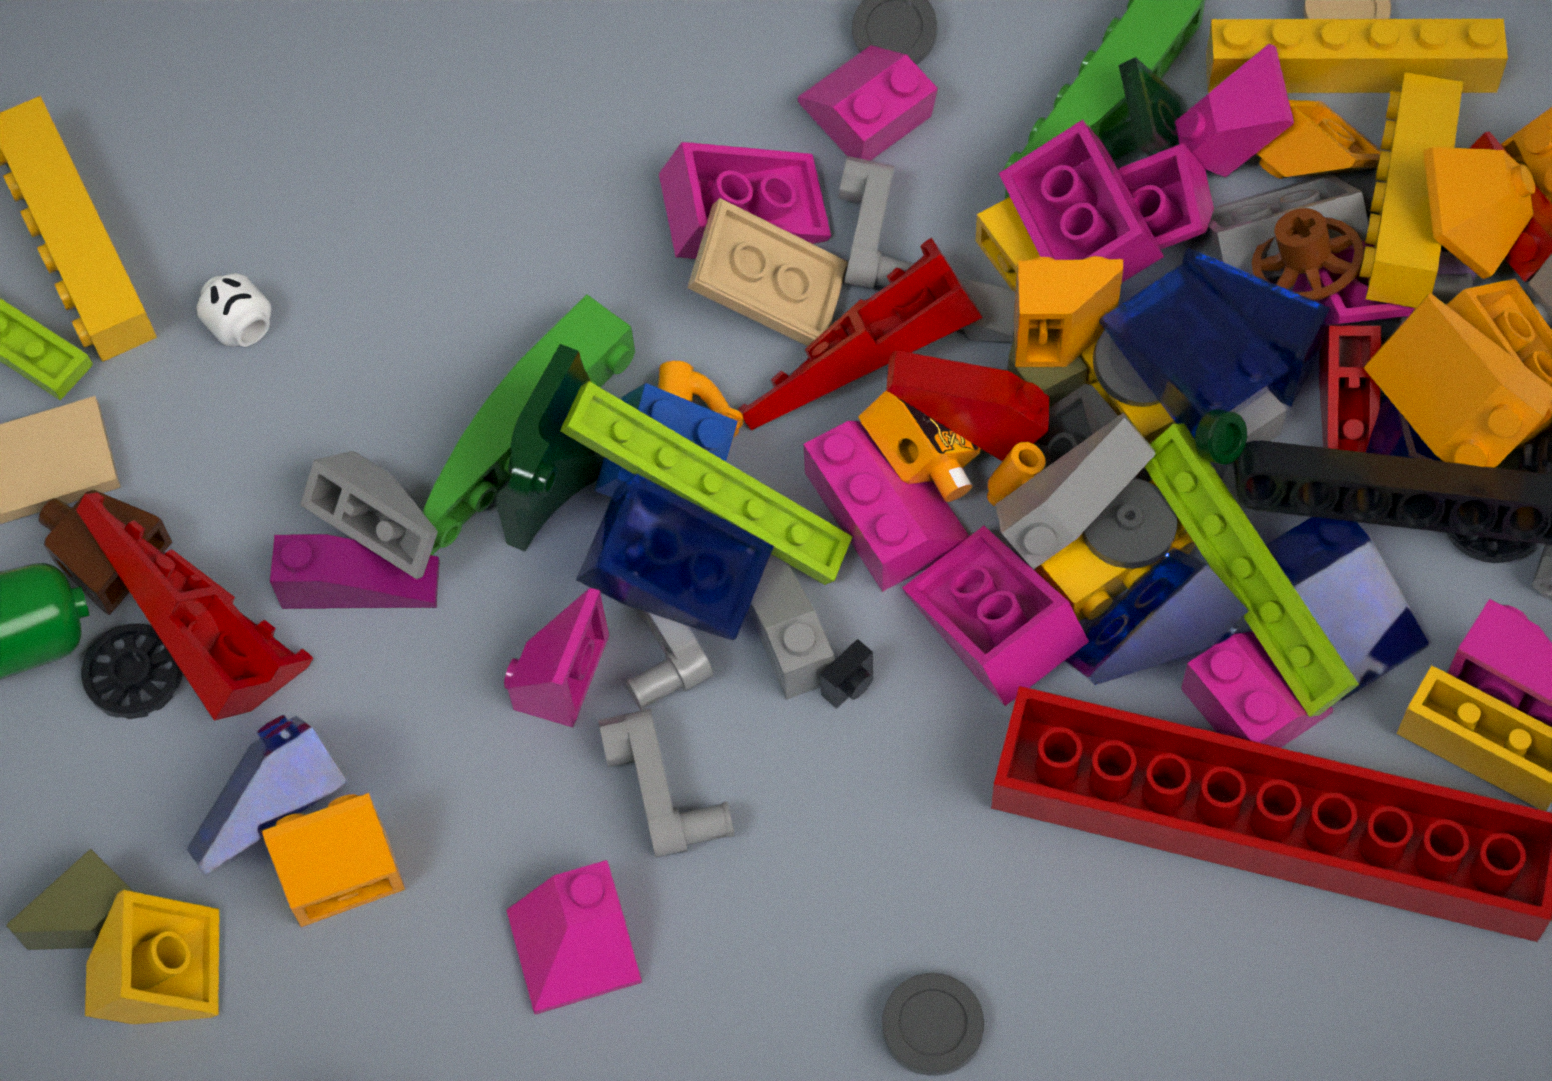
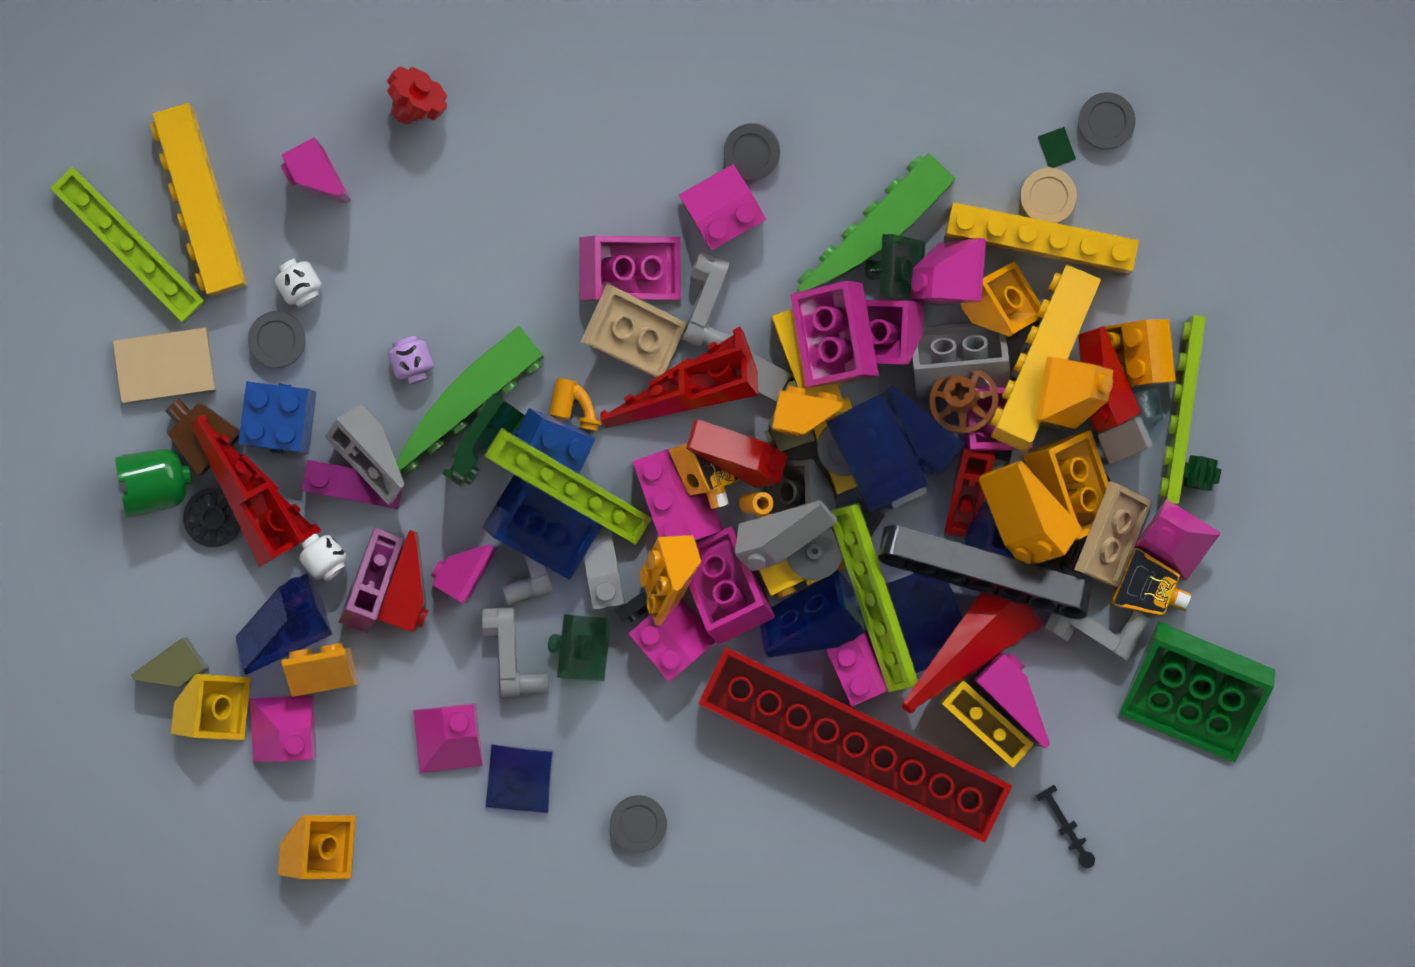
camera: 10 degrees right, 25 degrees up
(209, 394) = (276, 339): none -> dark grey piece
(220, 494) = (277, 417): none -> blue brick
(241, 149) = (313, 171): none -> dark pink slope
(284, 983) = (283, 728): none -> dark pink slope
(319, 688) = (322, 557): none -> white head
(379, 39) = (415, 95): none -> red plant
(403, 715) = (371, 581): none -> magenta slope
(424, 381) = (411, 359): none -> lavender head
(464, 729) = (406, 592): none -> red slope
(710, 984) = (519, 778): none -> clear blue slope
(776, 742) = (581, 647): none -> clear green tile
(898, 591) = (668, 574): none -> light orange slope
(921, 712) = (674, 642): none -> dark pink slope
(1221, 436) = (876, 521): dark green tile -> none
(1431, 612) = (982, 634): none -> red wedge

